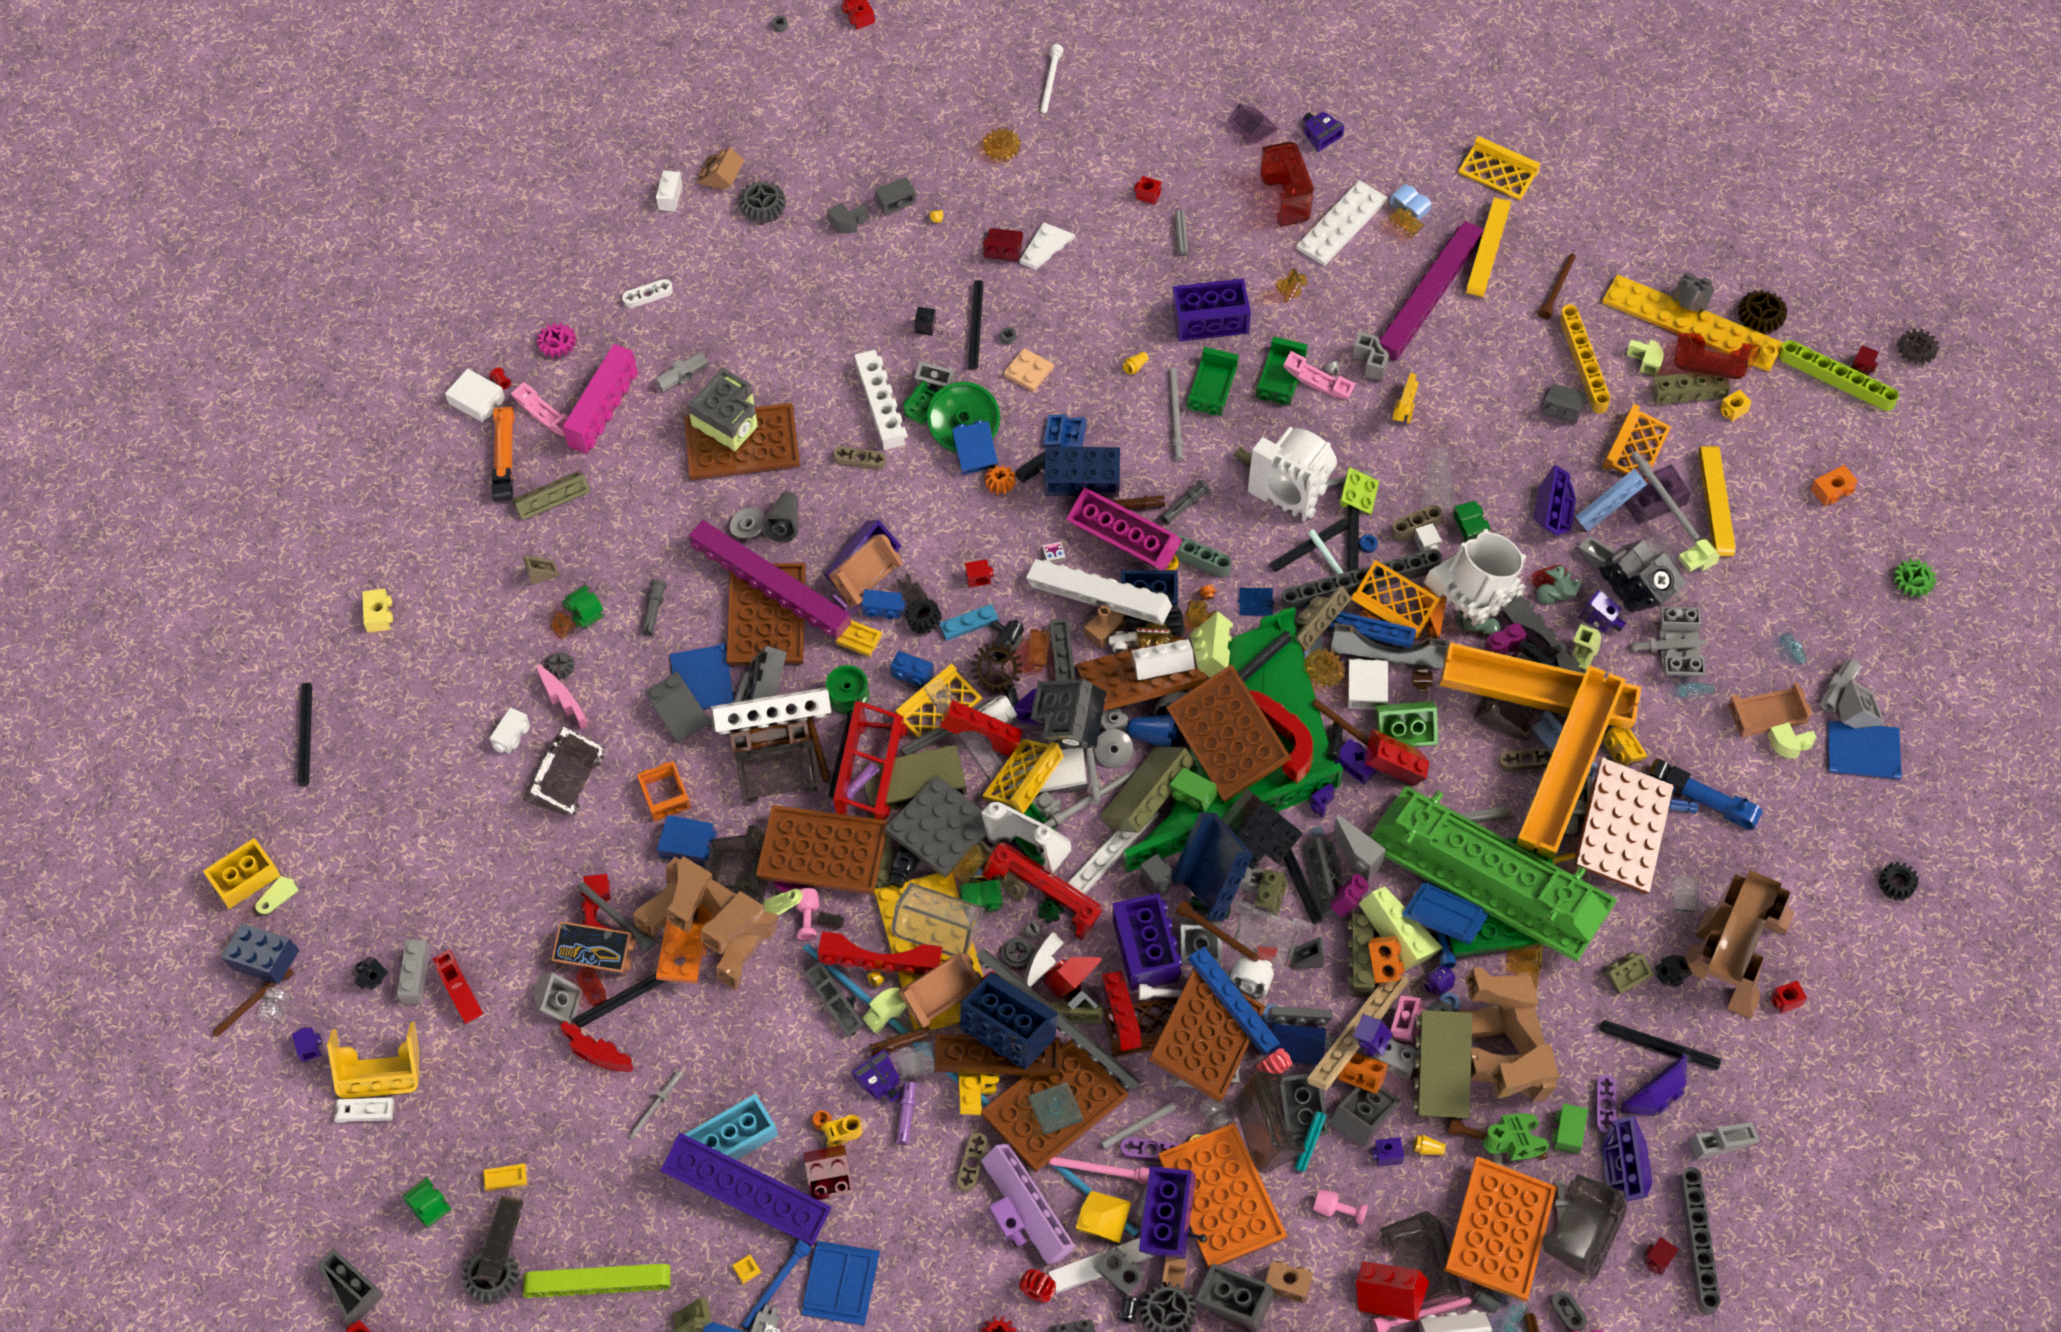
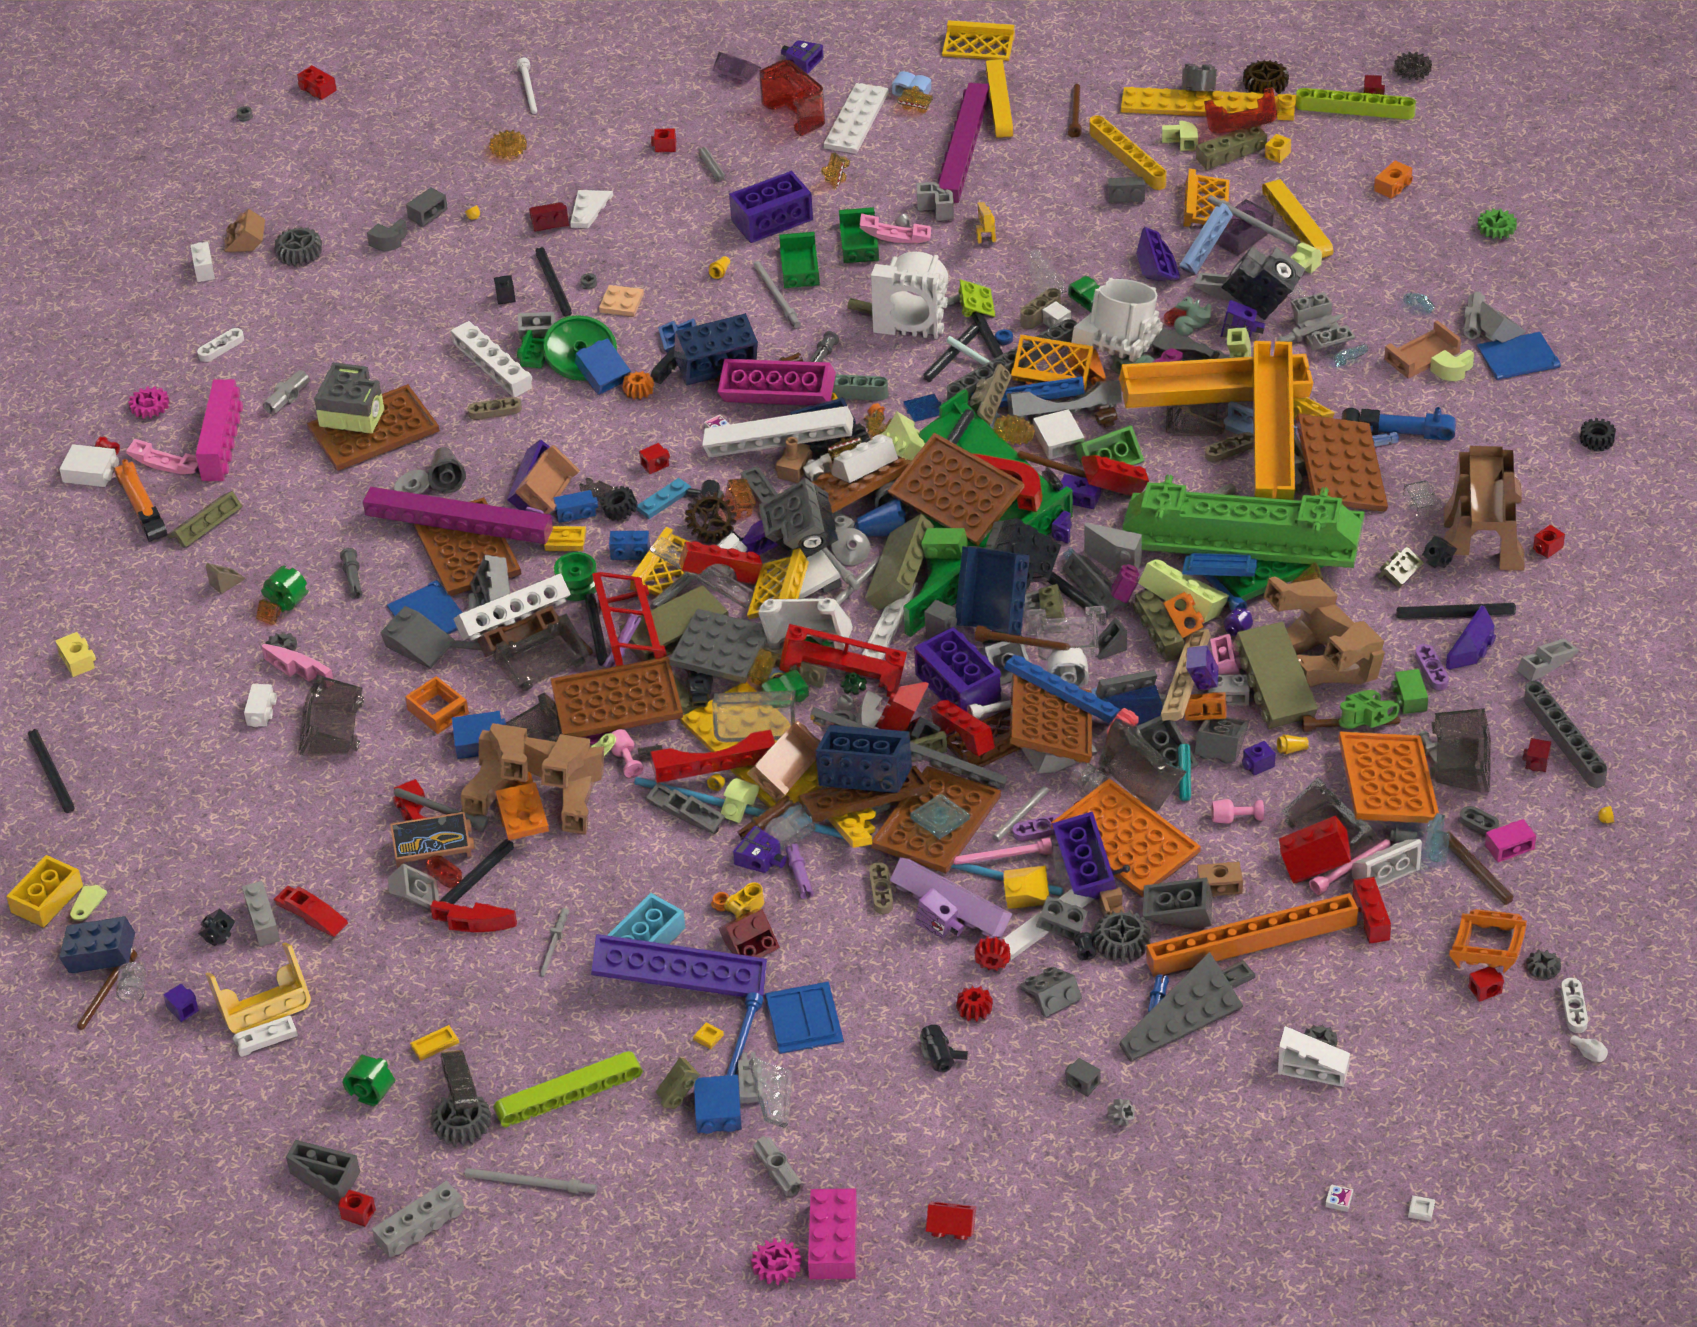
camera: 20 degrees left, 15 degrees down
(1627, 1159) = (1468, 691): dark purple wedge -> none

